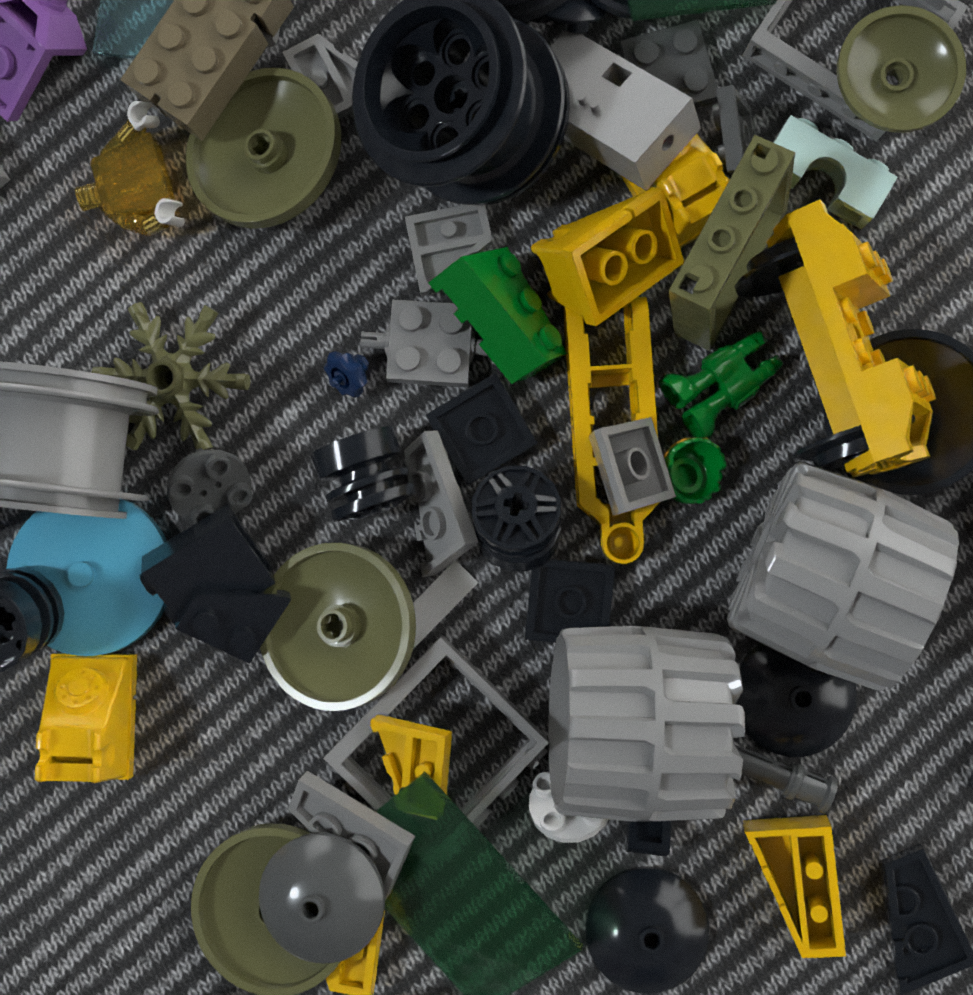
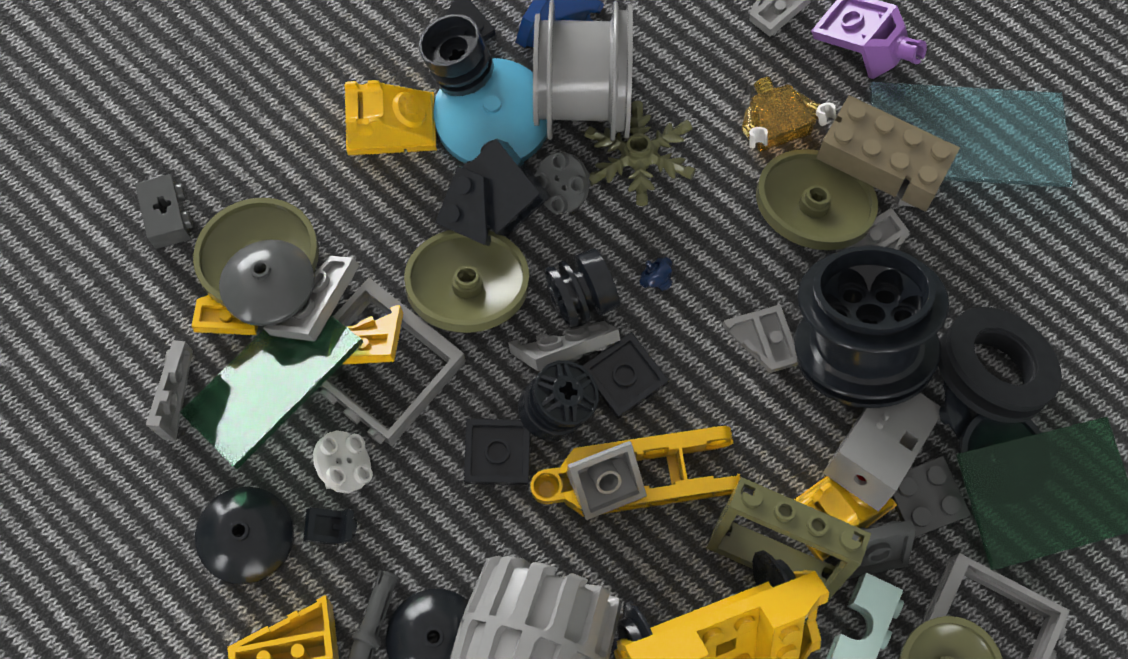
camera: 80 degrees right, 15 degrees down
(426, 344) = (686, 333): light grey plate -> none
(441, 598) = (486, 353): white sticker -> none
(503, 311) = (716, 378): green wedge -> none
(611, 255) = (769, 451): yellow piece -> none
(644, 724) = (408, 494): light grey wheel -> none
(695, 469) = (608, 537): green hair -> none
(730, 374) = (688, 564): green piece -> none

